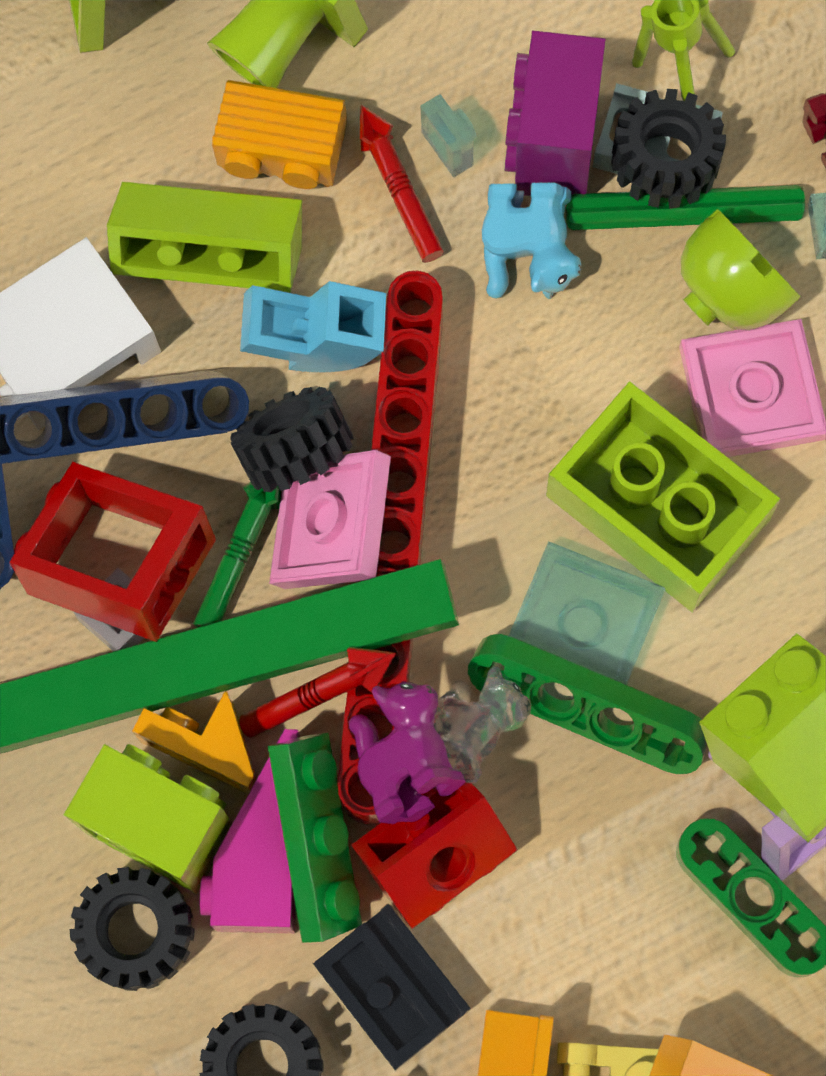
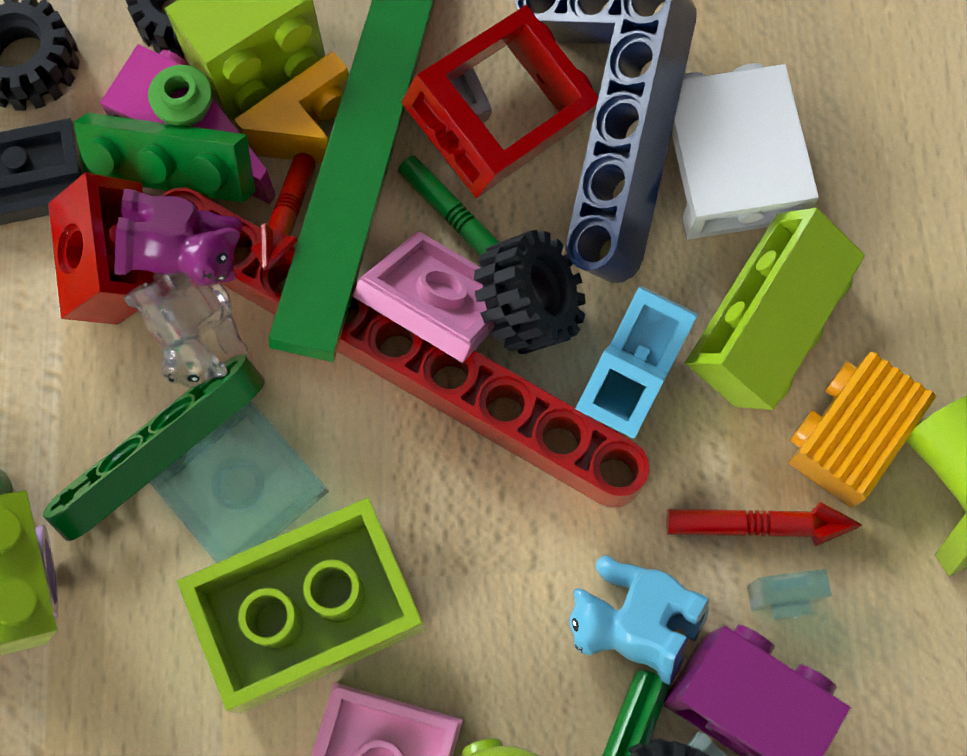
camera: 110 degrees right, 0 degrees up
(261, 858) = (184, 110): none -> bright green plate

